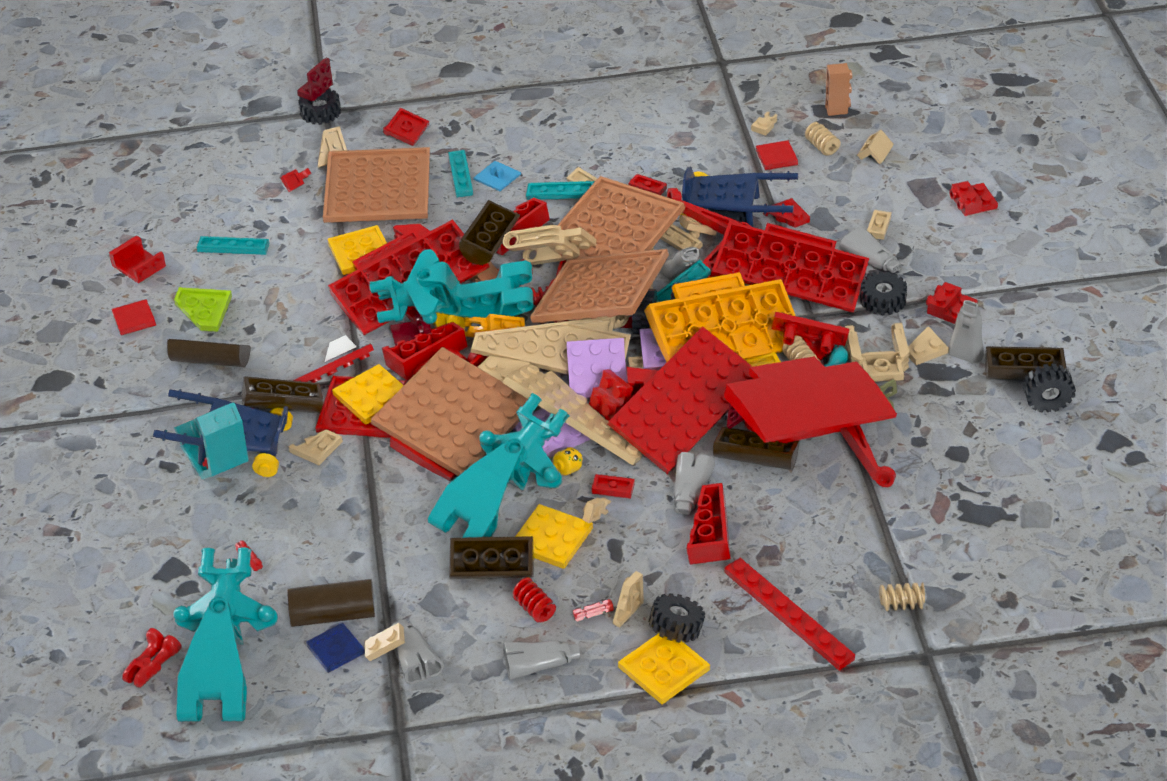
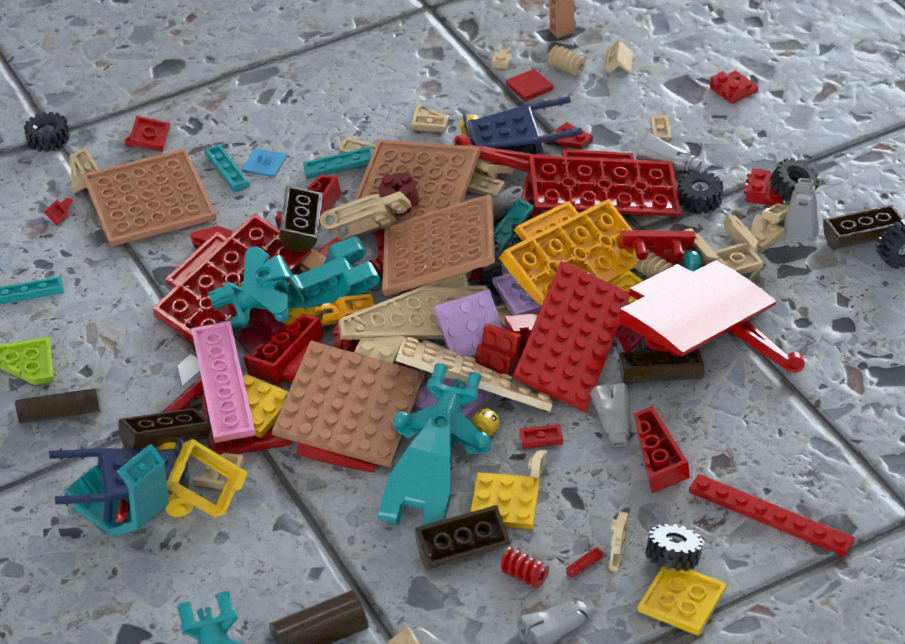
camera: 20 degrees left, 0 degrees up
(255, 562) = (203, 599): red axle -> none
(305, 433) = (234, 474): none -> yellow piece
(318, 82) = (39, 108): dark red bracket -> none
(351, 366) = (223, 382): none -> bright pink plate
(355, 245) = (157, 264): yellow plate -> none
(596, 225) = (400, 182): none -> dark red brick
(648, 184) = (422, 137): red plate -> none
(663, 168) = (428, 120): none -> tan wing
(902, 596) = (869, 470): tan piece -> none
(942, 330) = (775, 213): none -> tan plate
(983, 294) = (787, 175): none -> black tyre

